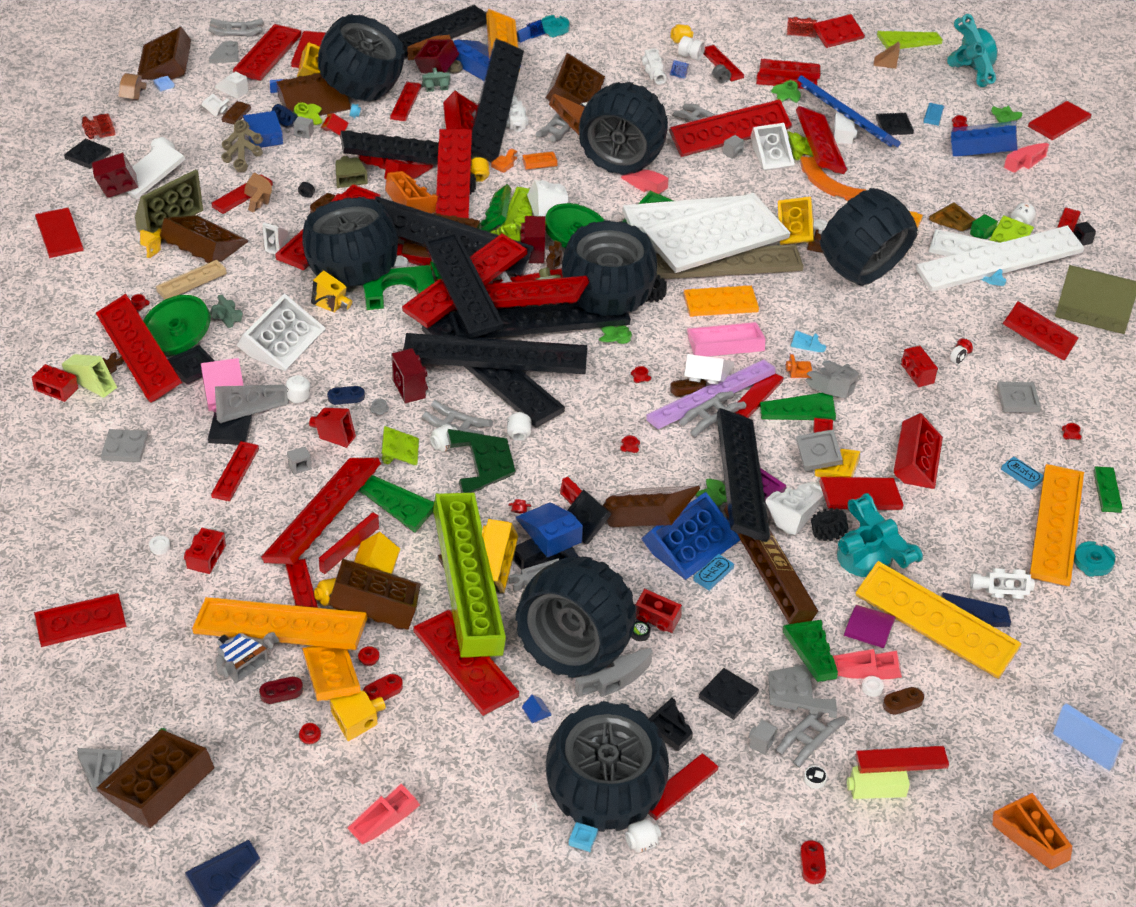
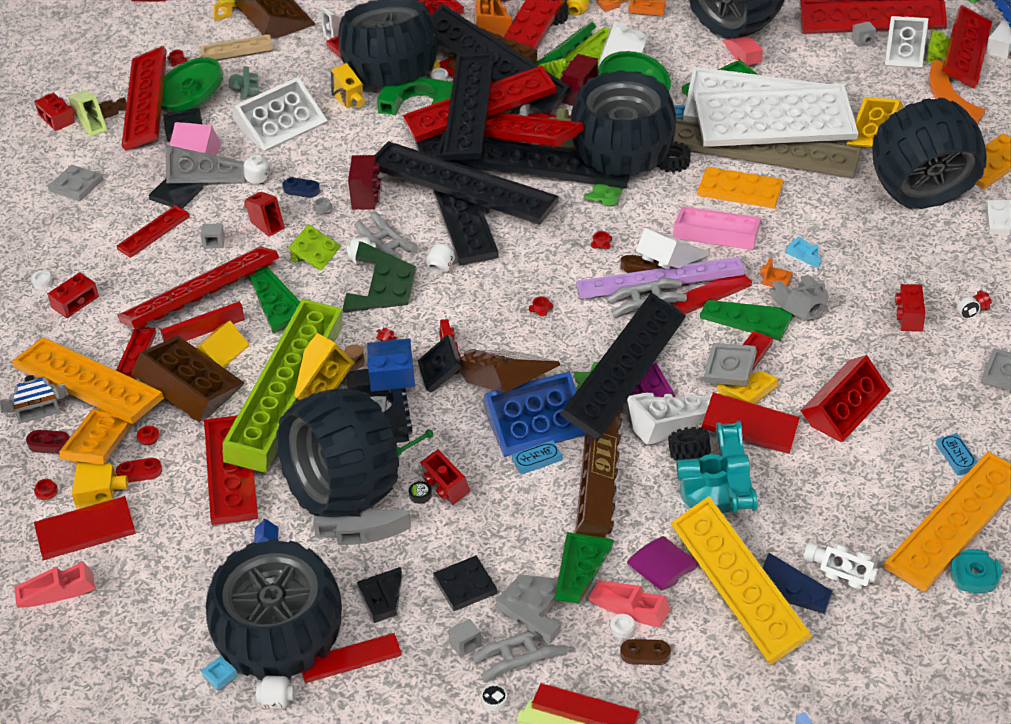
camera: 30 degrees right, 0 degrees up
(370, 755) = (84, 528): none -> red tile

